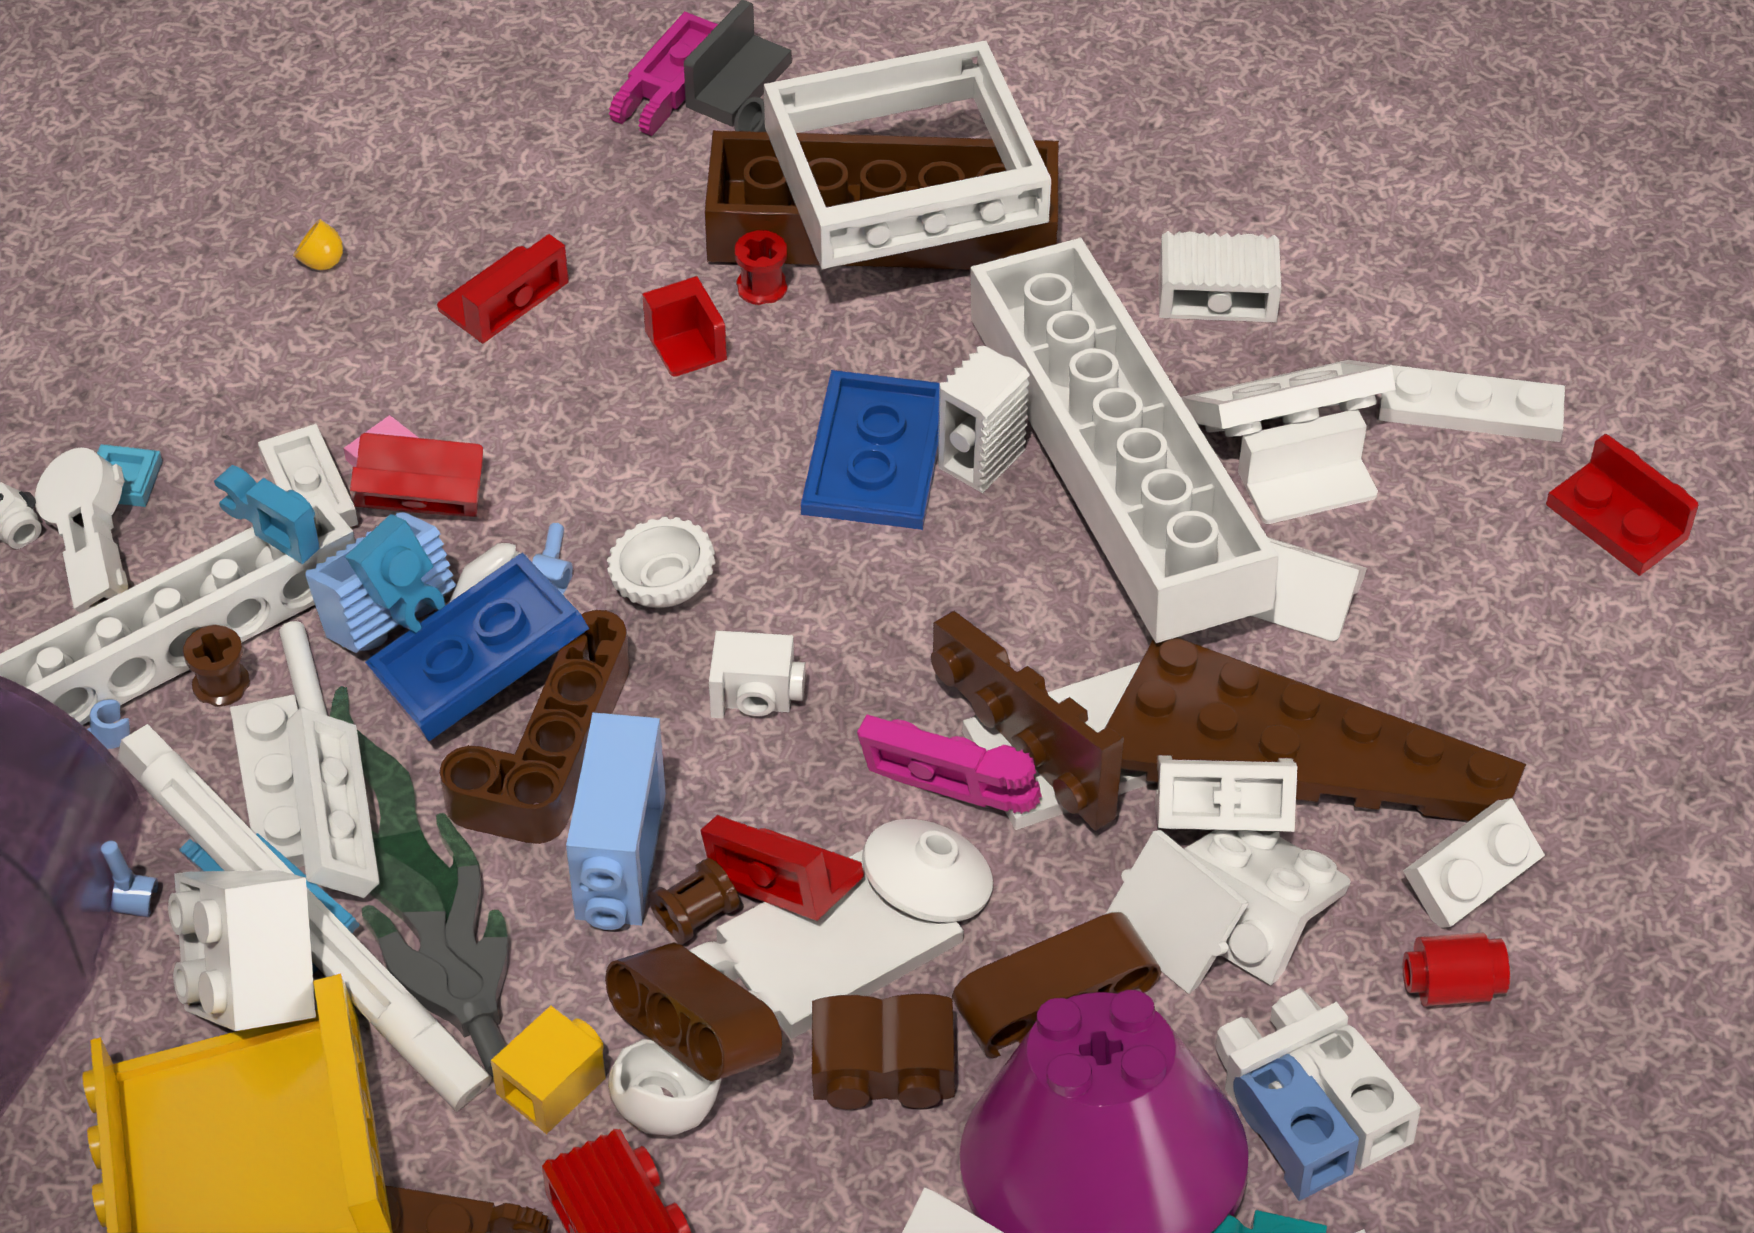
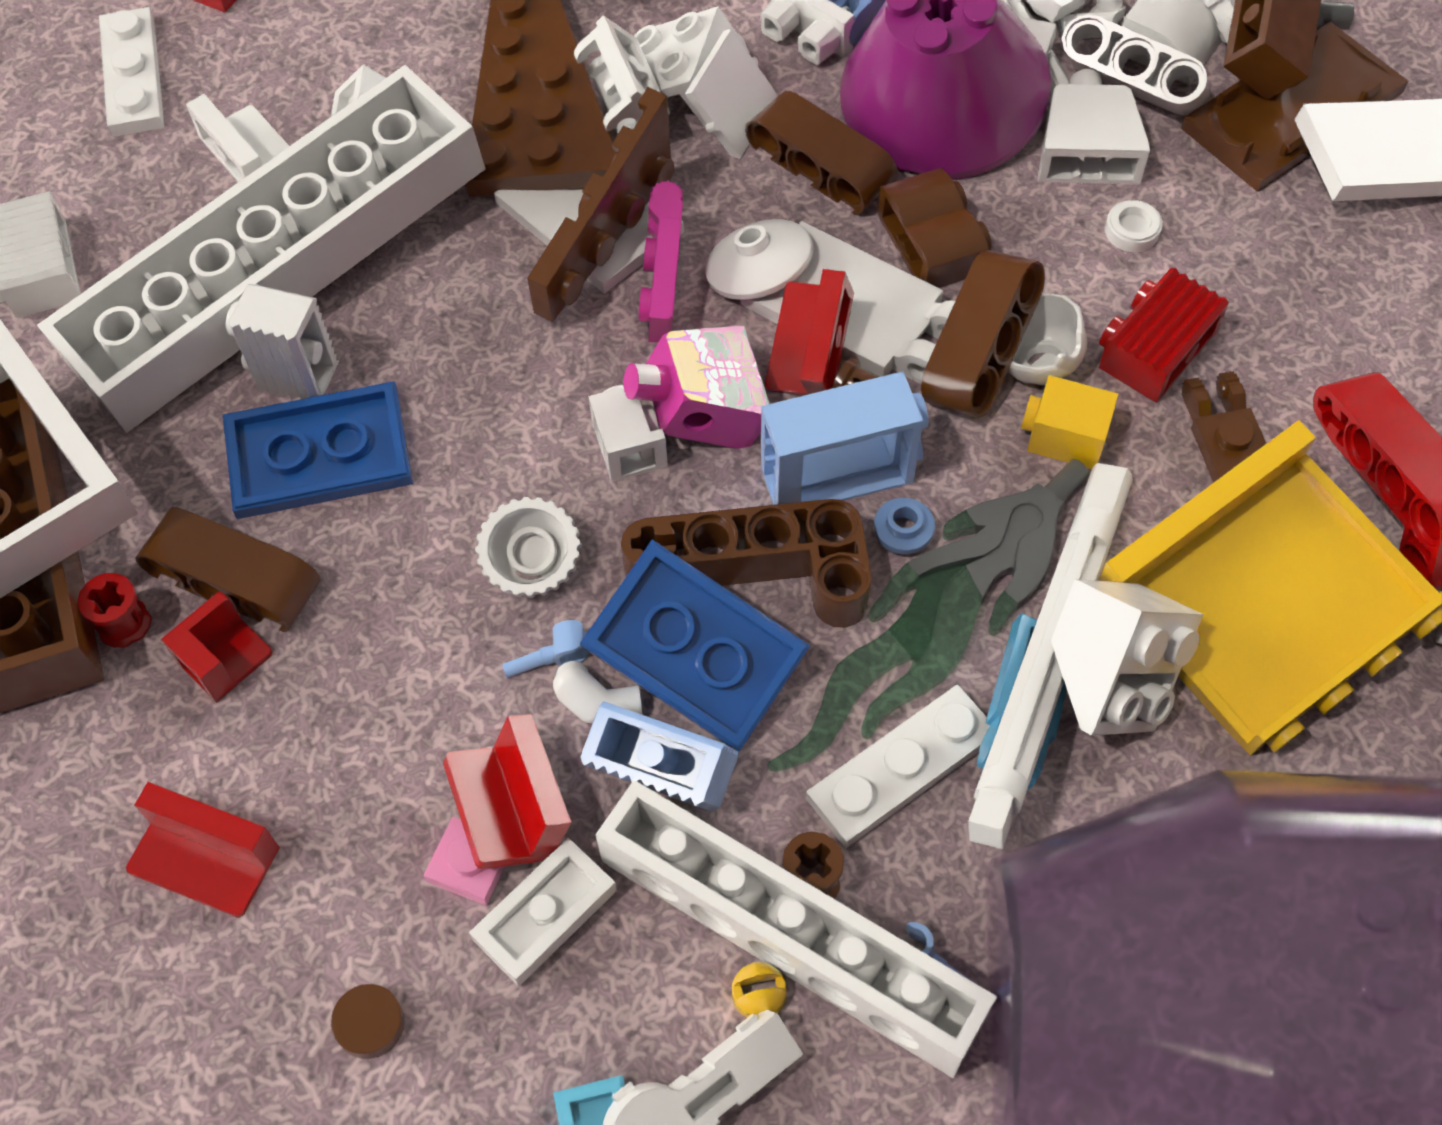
camera: 110 degrees left, 10 degrees up
(130, 891) = (1075, 812): light blue hand -> none
(276, 515) = (665, 826): dark azure plate -> none
(295, 359) = (367, 1021): none -> reddish brown tile
(301, 667) = (786, 794): white piece -> none
(320, 247) = (189, 1078): yellow hinge -> none
(332, 803) = (921, 683): white plate -> none
(391, 571) = (672, 705): dark azure plate -> none
(524, 892) = (900, 539): none -> medium blue plate
(762, 349) = (216, 558): none -> reddish brown beam
(763, 740) = (702, 386): none -> dark pink torso
(1290, 396) = (174, 150): white plate -> none

